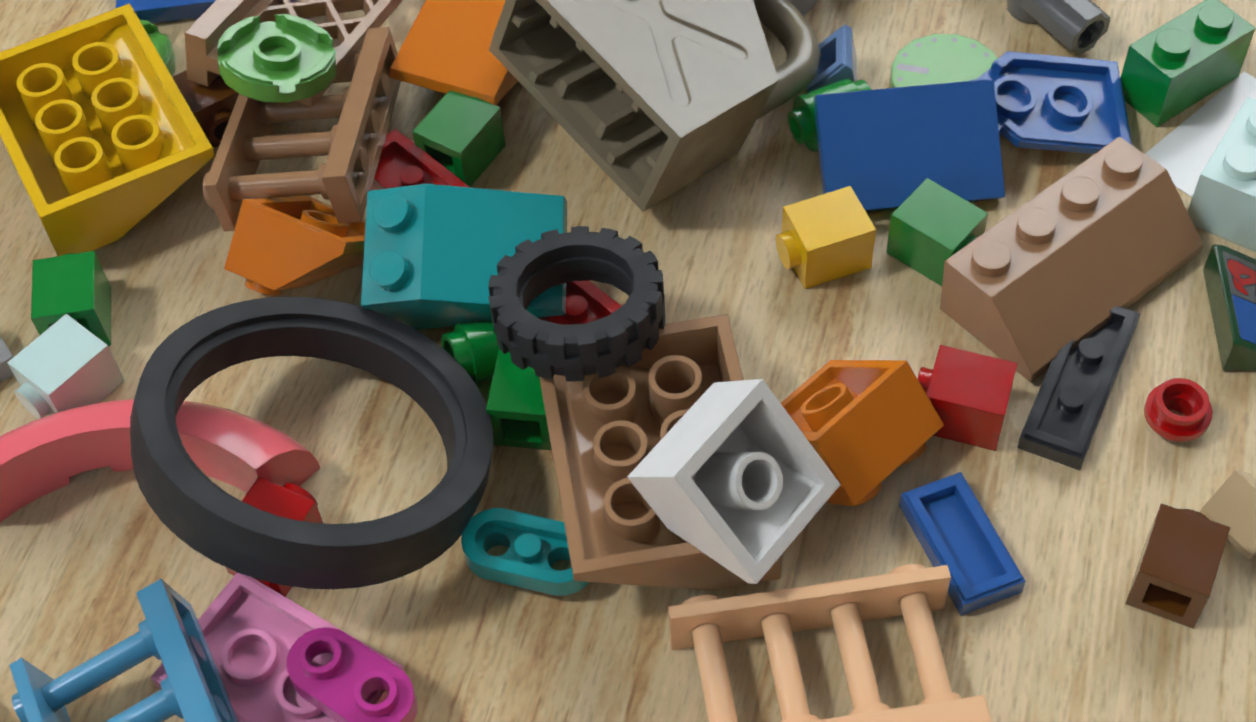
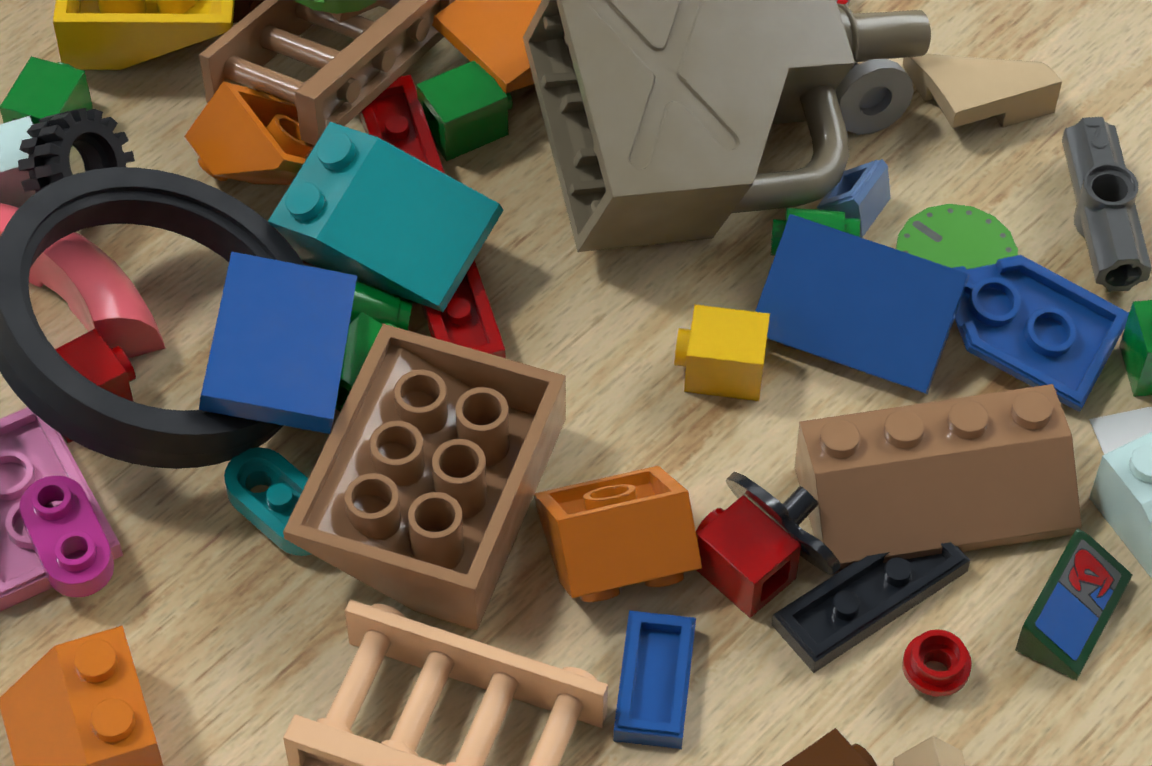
camera: 25 degrees right, 0 degrees up
(128, 328) = (53, 140): none -> black tyre
(453, 406) = (279, 343): none -> blue tile
(577, 348) = (433, 348): black tyre -> none
(736, 478) = (460, 518): white slope -> none
(933, 228) = (827, 383): green brick -> none
(987, 340) = (789, 517): none -> black piece

